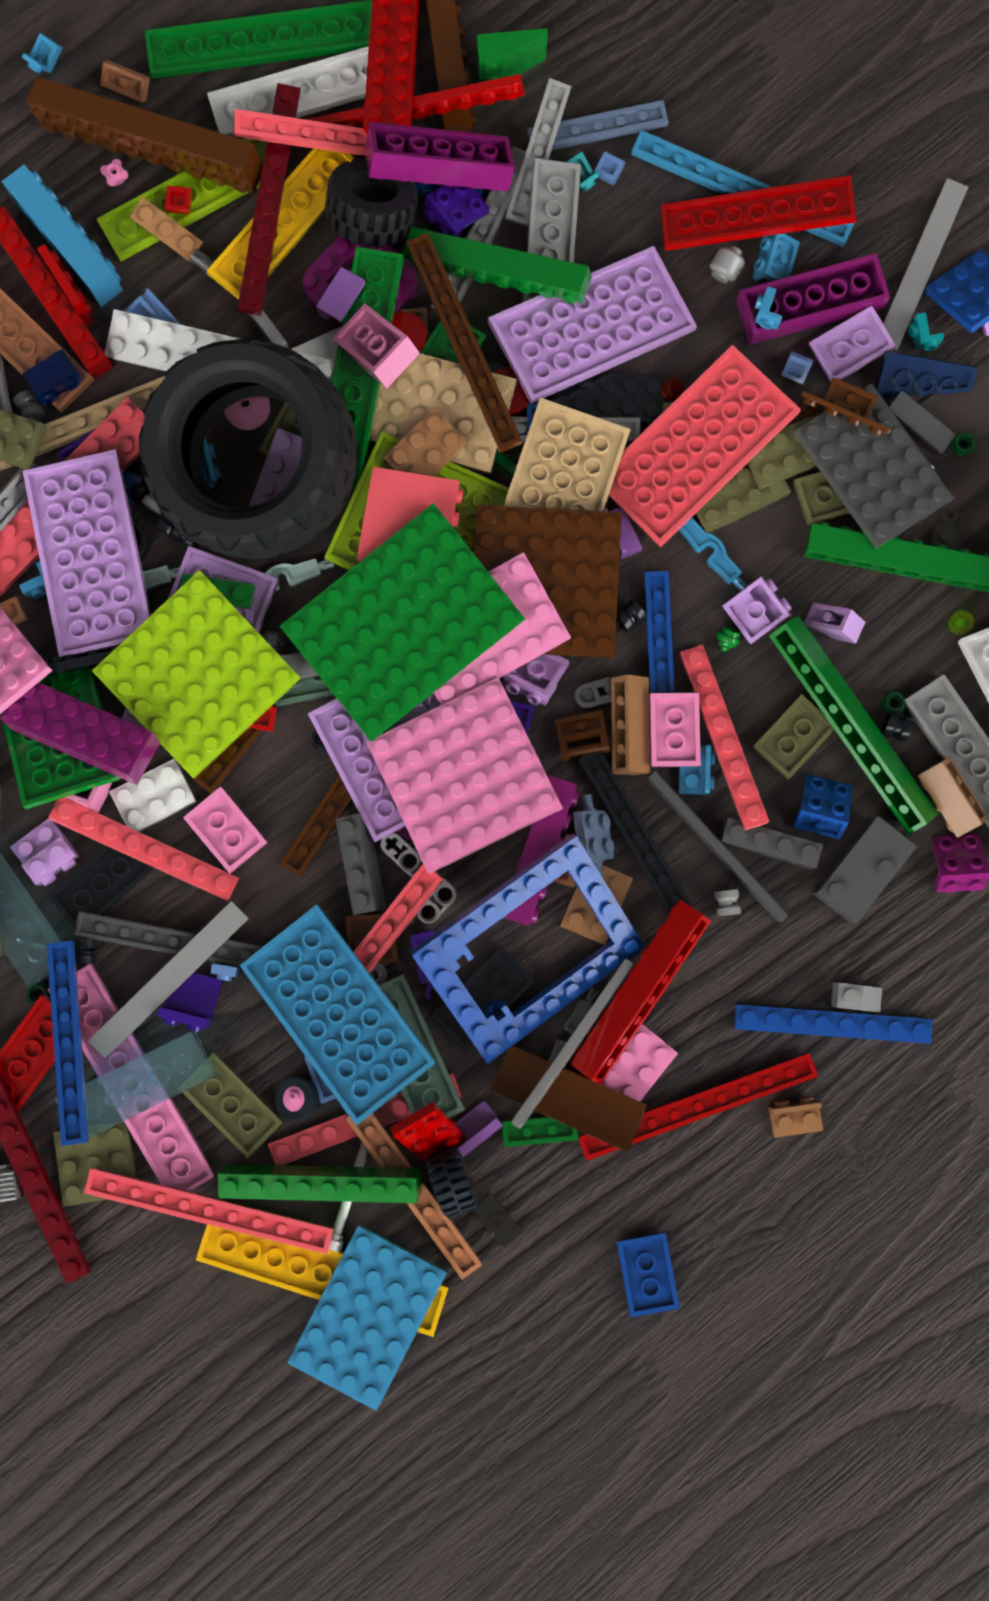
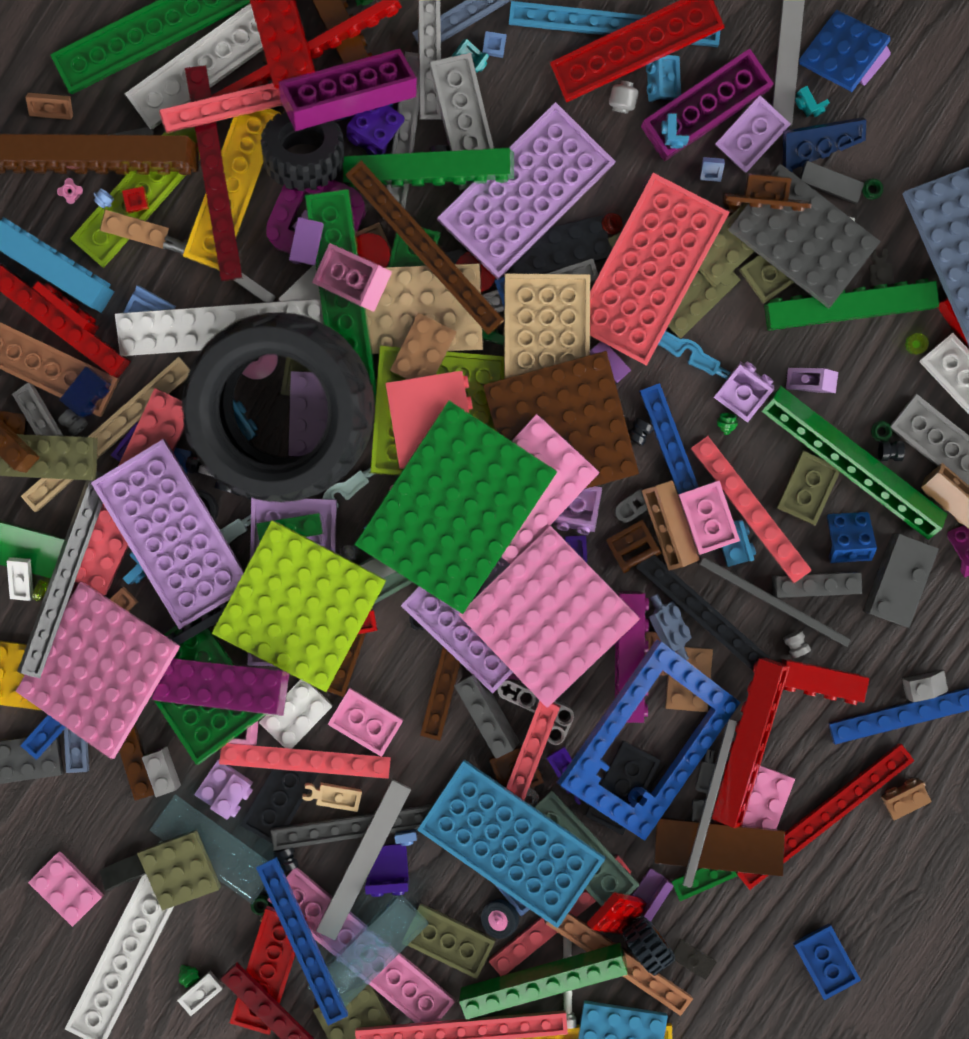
camera: 20 degrees left, 5 degrees up
(145, 188) = (103, 198): none -> light blue plate
(162, 899) = (334, 796): none -> tan plate
(746, 954) = (825, 681): none -> red brick

